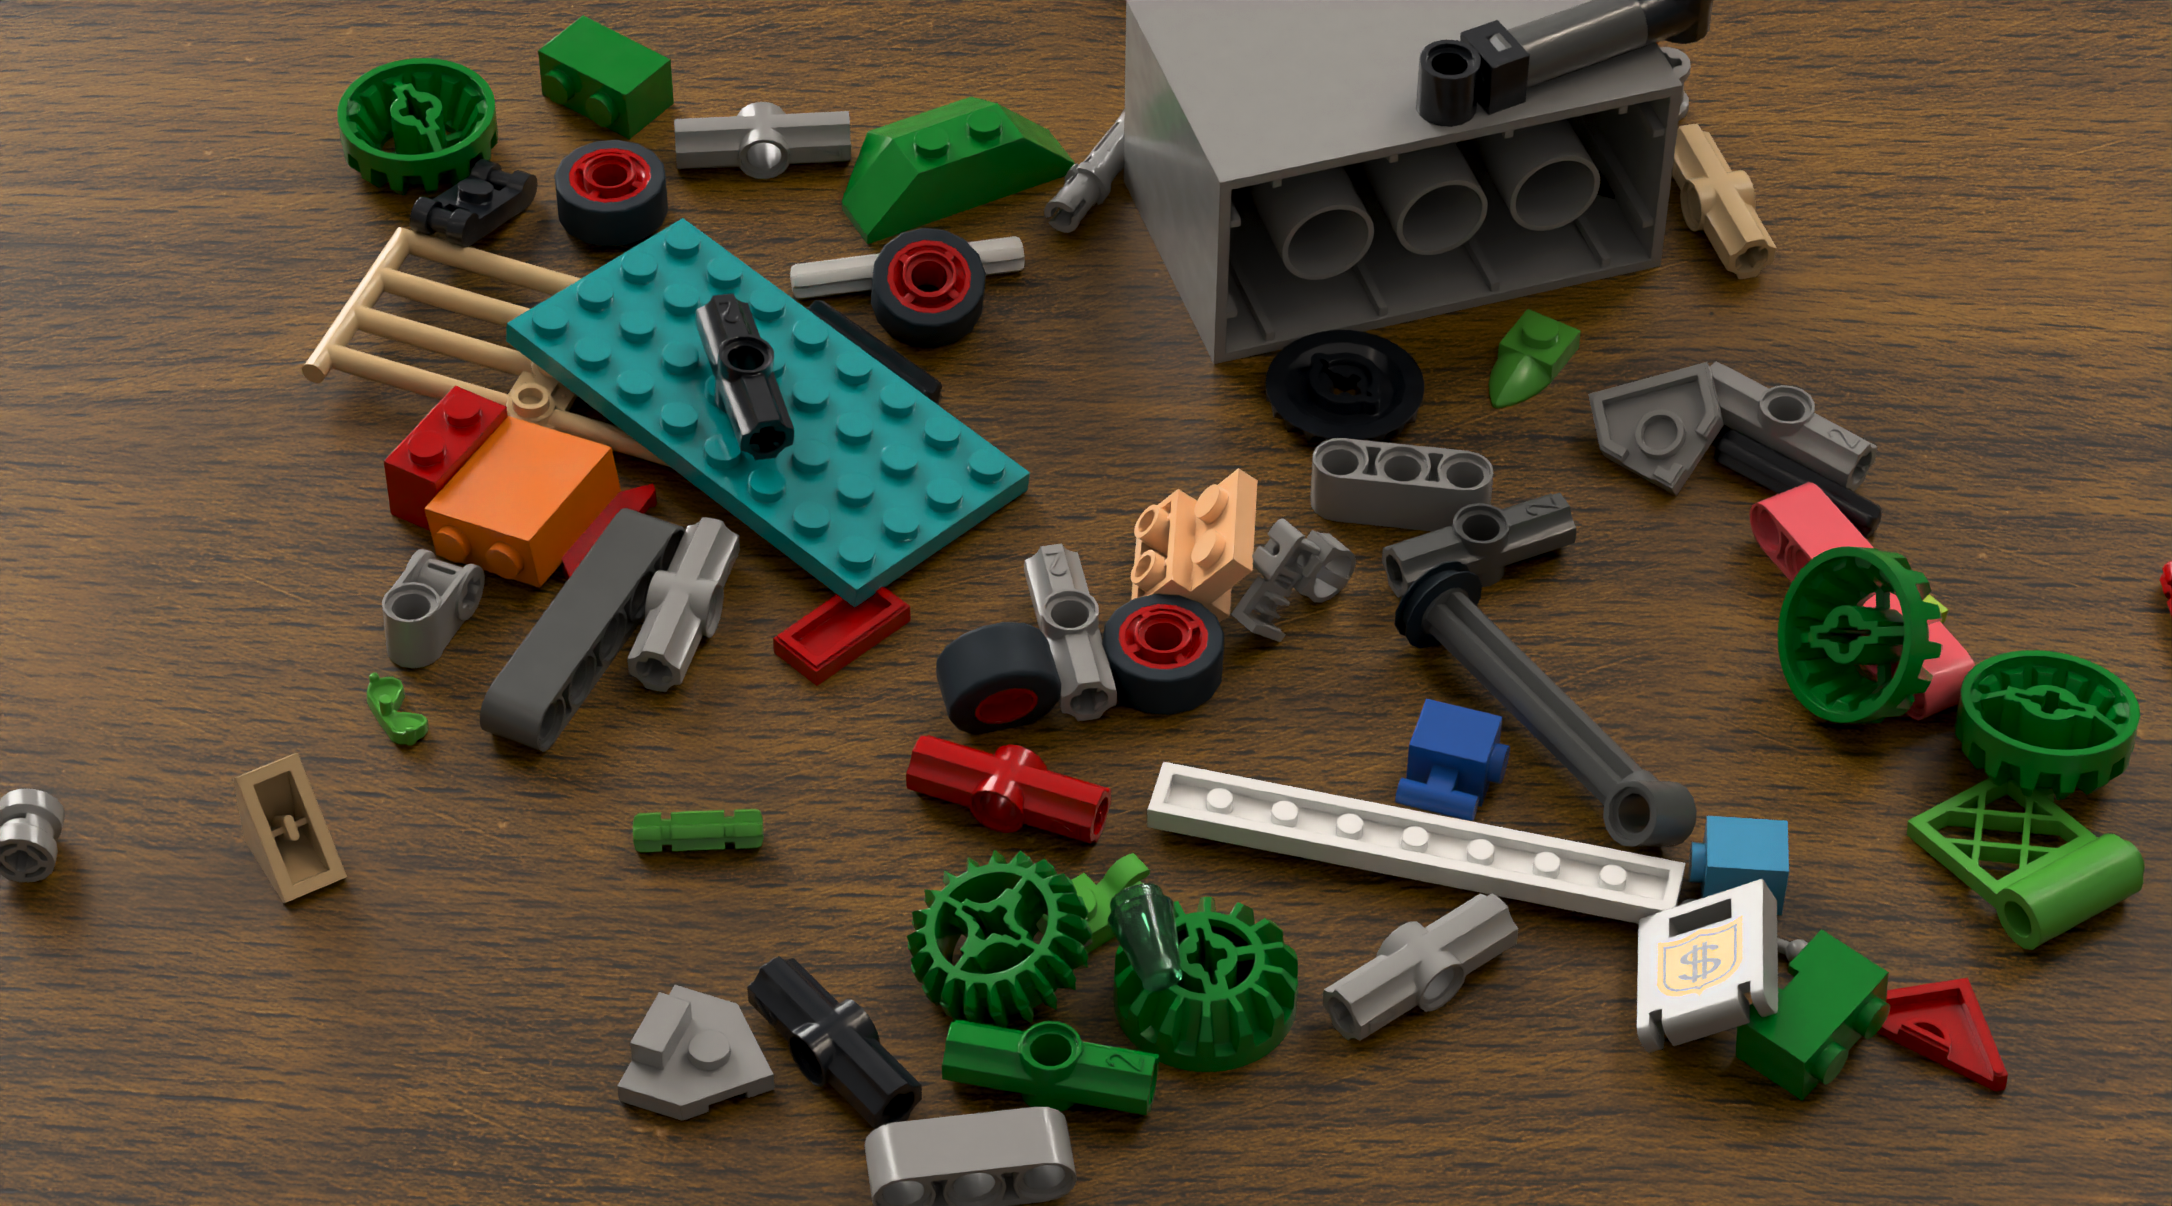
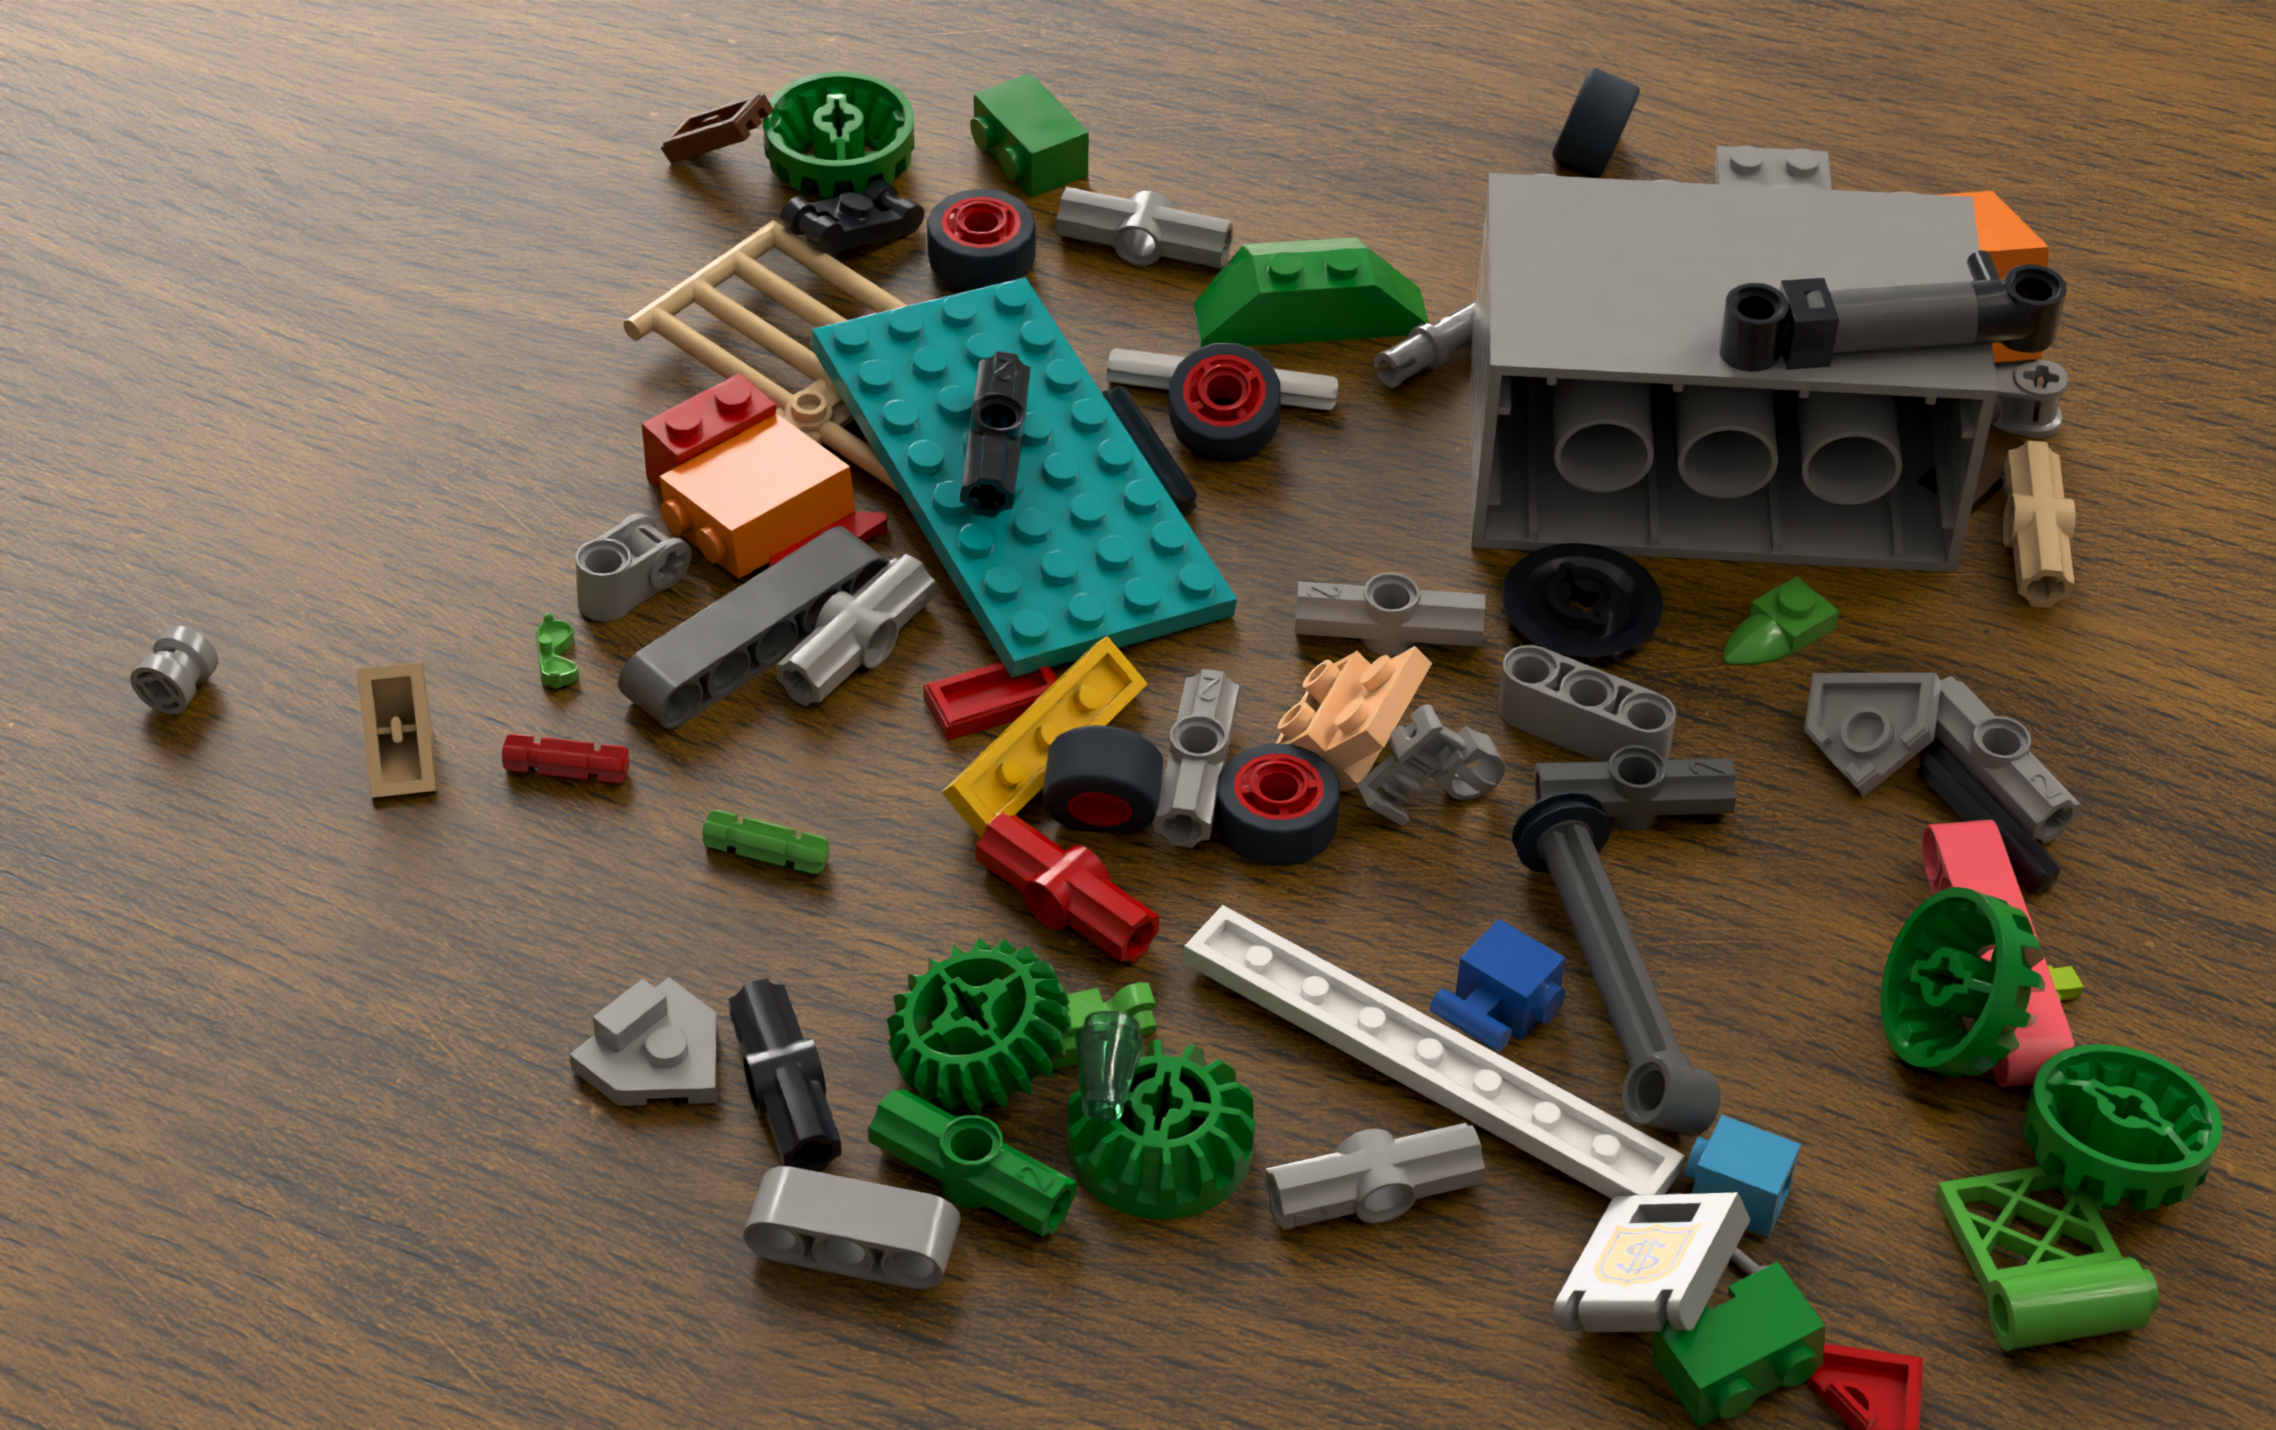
camera: 20 degrees right, 0 degrees up
(293, 150) = (716, 128): none -> reddish brown tile
(461, 808) = (565, 758): none -> red axle
(905, 678) = (1016, 762): none -> yellow plate
(1179, 447) = (1390, 614): none -> light grey piece

